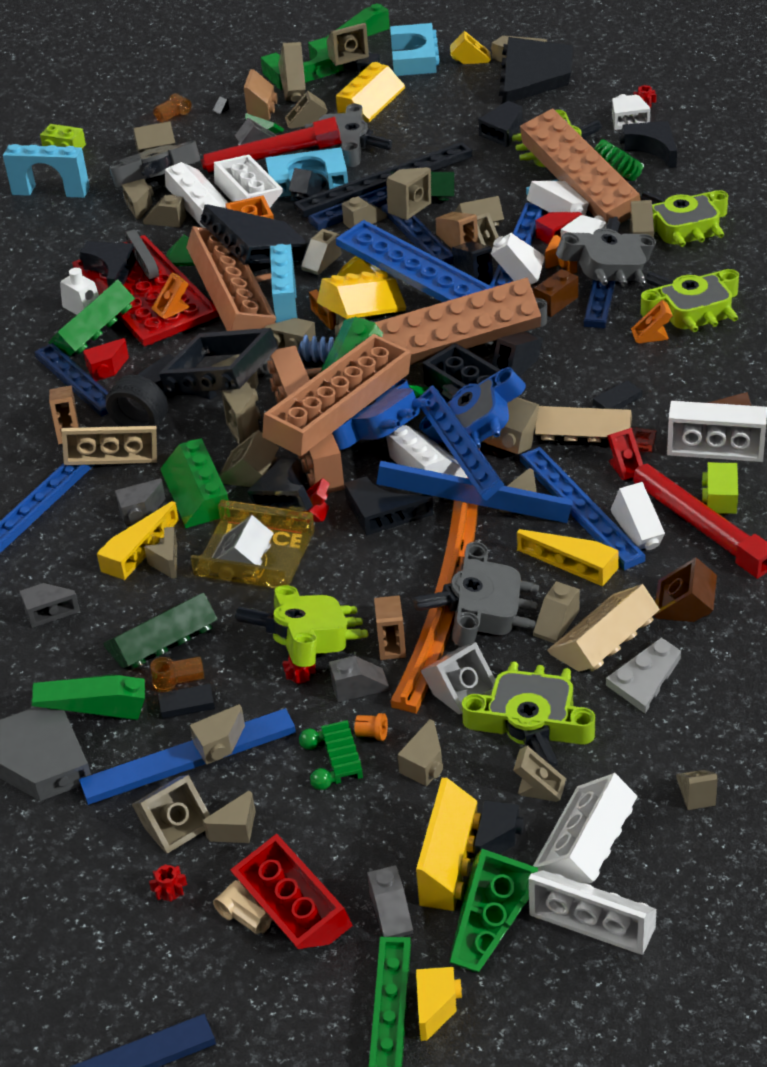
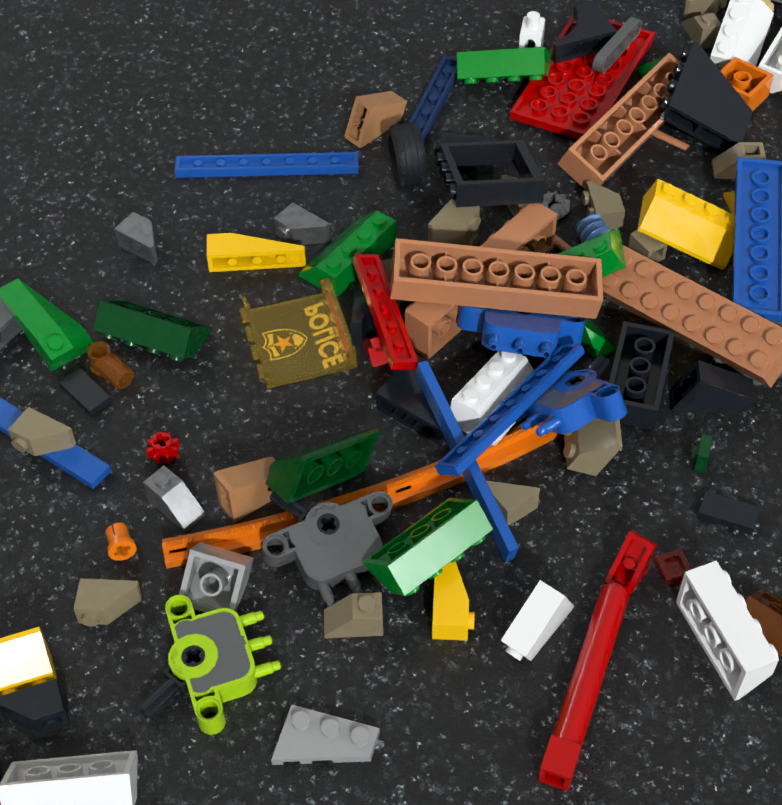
camera: 55 degrees right, 10 degrees up
(106, 359) = (467, 104): red slope -> none
(109, 445) = (349, 166): tan slope -> none
(164, 556) = (247, 282): dark tan slope -> none
(169, 299) = (571, 98): orange slope -> none
(245, 542) = (282, 327): slope -> none
(283, 282) = (669, 146): medium azure arch -> none
(305, 470) = (385, 312): none -> red plate
(306, 624) = (206, 424): lime piece -> none
(340, 751) = (79, 536): green gear -> none
(414, 563) = (322, 465): none -> dark green slope
(537, 537) = (429, 545): none -> slope
(538, 776) = (120, 709): dark tan slope -> none
(562, 384) = (701, 453): none -> dark green plate
(580, 423) = (655, 501): tan slope -> none
(582, 508) = (531, 564): blue tile -> none
(605, 629) = (357, 670): tan slope -> none
(686, 592) = (457, 722): reddish brown slope -> none
(721, 486) = (642, 677): lime brick -> none

